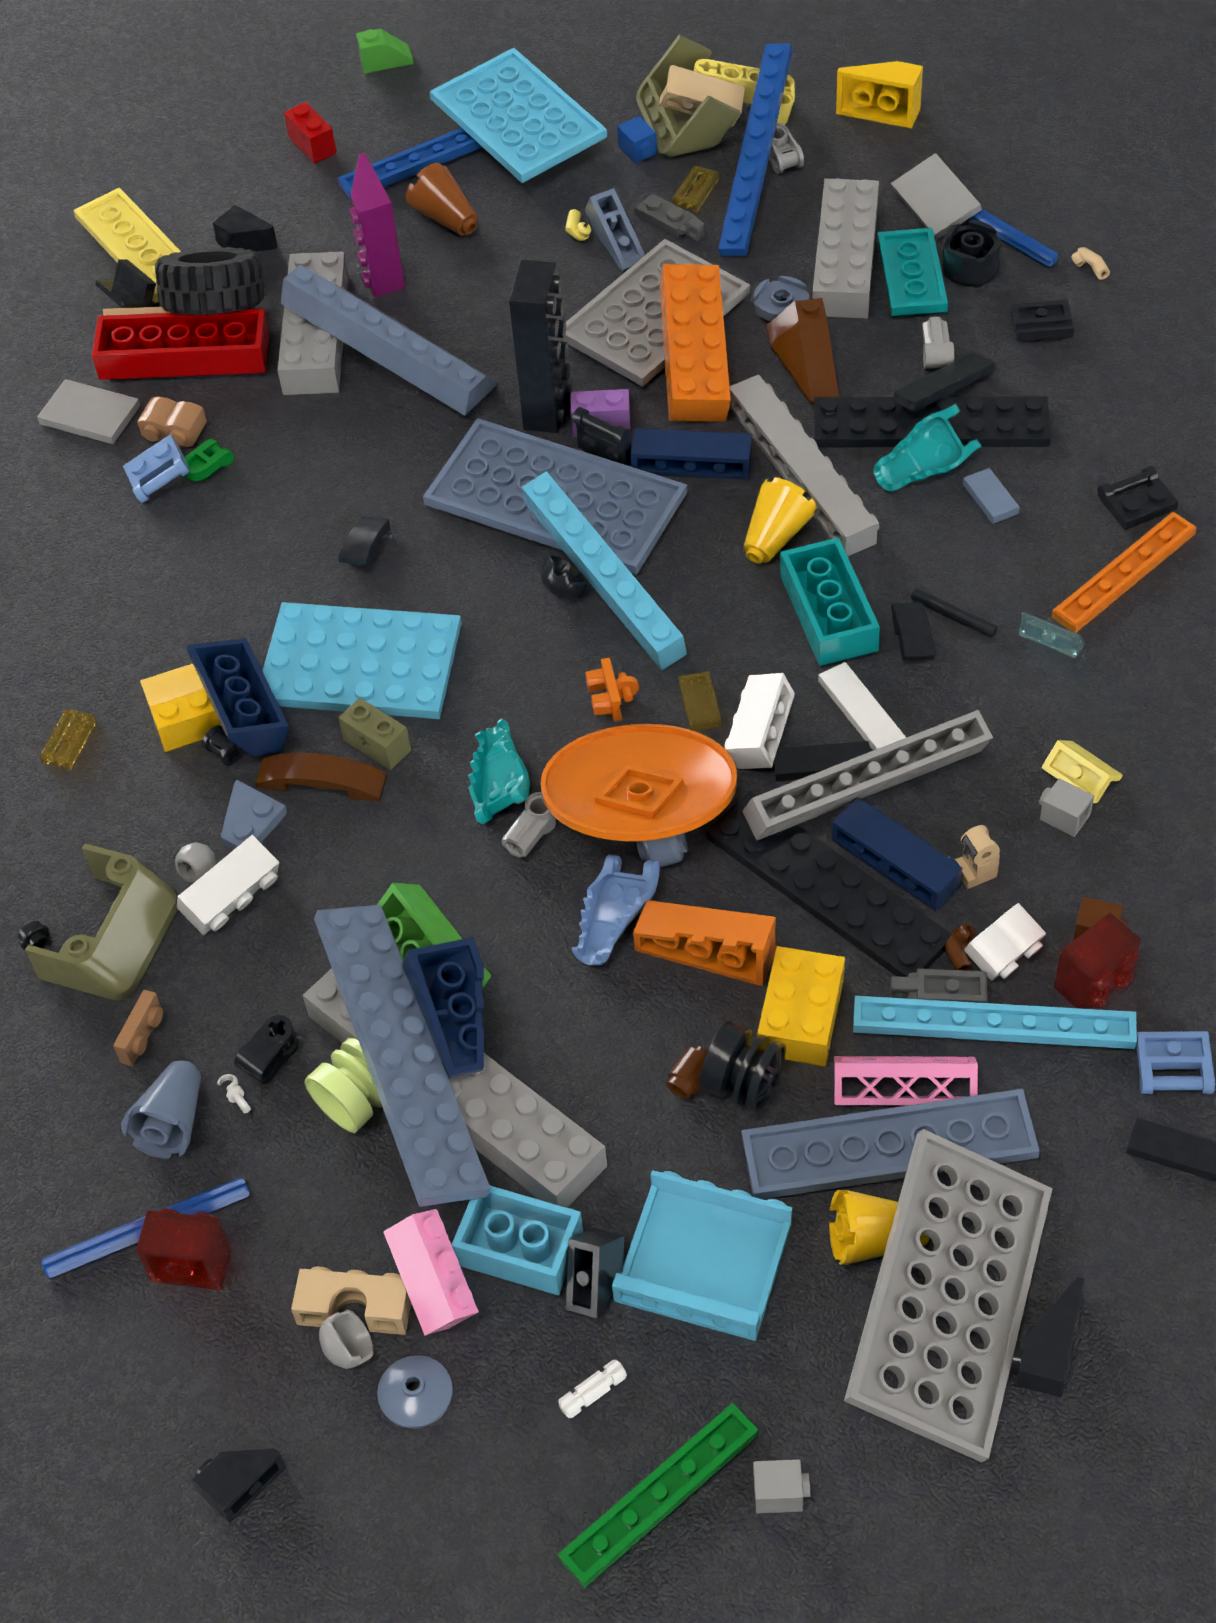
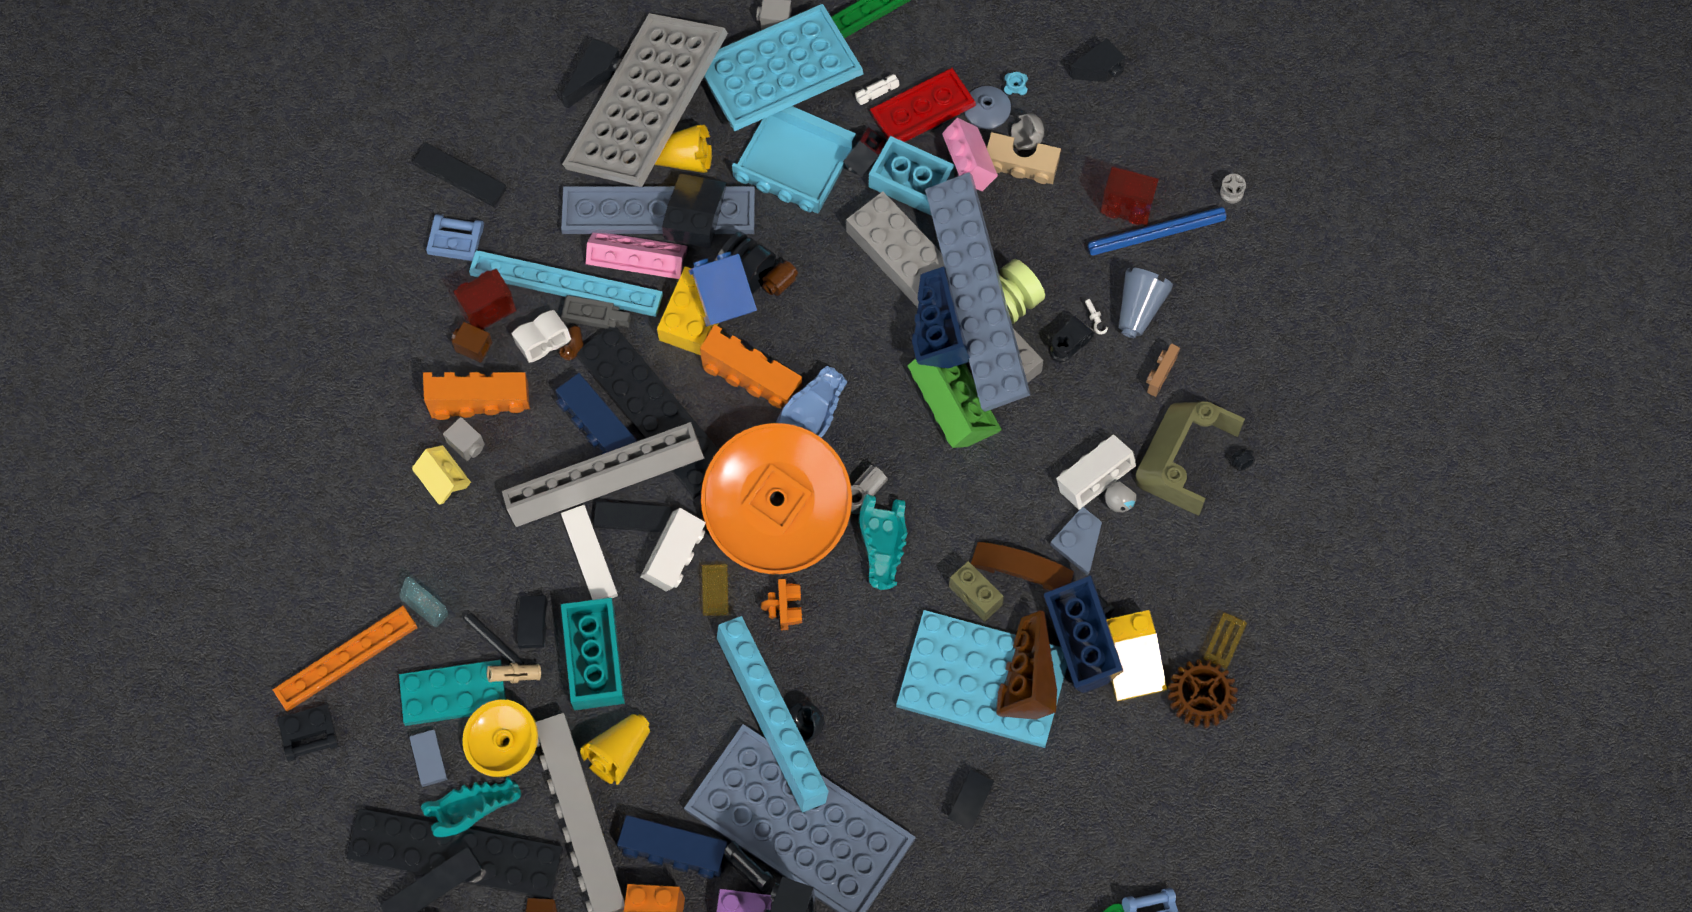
camera: 175 degrees left, 15 degrees up
(22, 1298) = (1236, 184): none -> light grey wheel
(96, 674) = (1209, 702): none -> reddish brown gear
(302, 645) = (1031, 680): none -> reddish brown wedge
(368, 1421) = (1015, 77): none -> medium azure plate
(515, 1367) = (923, 106): none -> red tile
(745, 1371) = (780, 67): none -> medium azure plate
(761, 990) = (723, 288): none -> panel
(833, 1133) = (693, 210): none -> black slope
(911, 506) = (488, 729): none -> yellow dish
(917, 573) = (513, 673): none -> tan pin
(979, 857) = (541, 402): tan leg -> none
(985, 558) = (447, 692): none -> teal plate
(1072, 854) = (475, 394): none -> orange wedge

